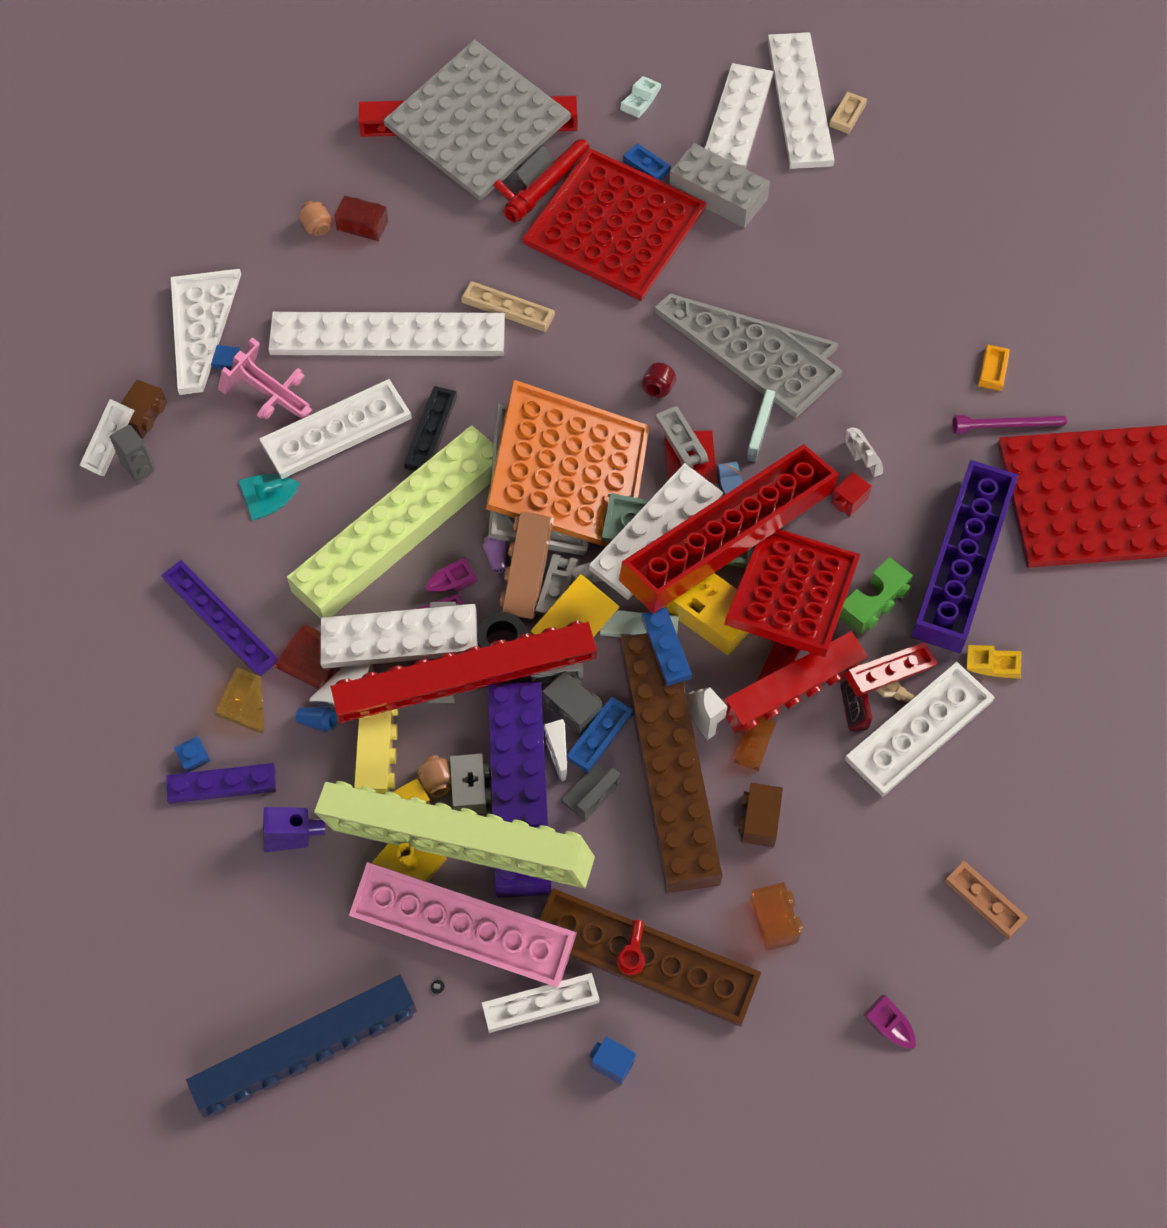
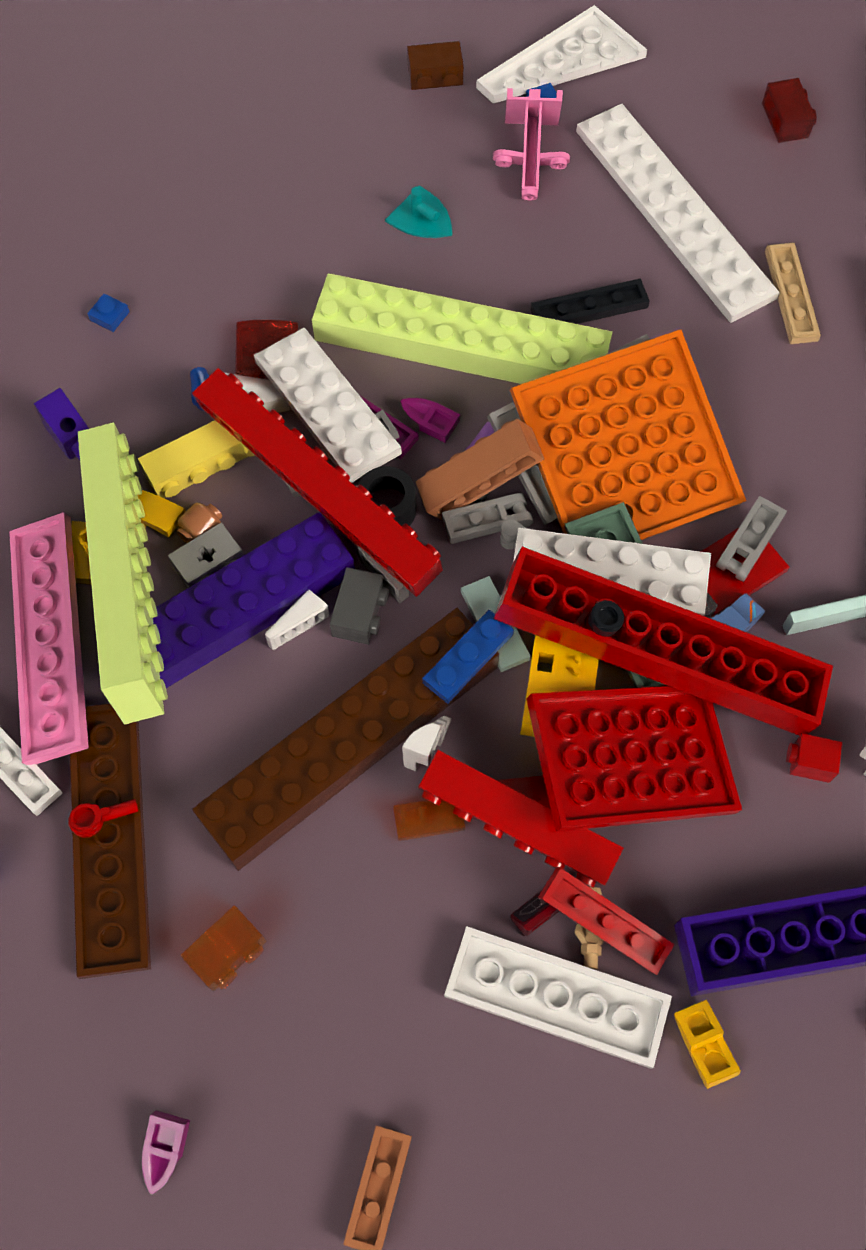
camera: 60 degrees right, 5 degrees up
(100, 449) = (382, 56): white plate -> none
(132, 453) = (378, 82): dark grey brick -> none
(220, 618) = (258, 252): dark purple plate -> none
(221, 783) = (93, 352): dark purple plate -> none
(243, 701) = (185, 320): clear yellow wing -> none
(315, 218) = (755, 74): nougat head -> none
(335, 428) = (531, 227): white plate -> none
(579, 603) = (468, 551): yellow tile -> none
(591, 791) = (270, 681): dark grey panel -> none
(599, 735) = (337, 652): blue plate -> none
(658, 380) = (811, 479): dark red head -> none
(703, 543) = (606, 618): none -> black tile
(761, 815) = (339, 869): reddish brown brick -> none
(863, 611) = (667, 853): bright green arch -> none

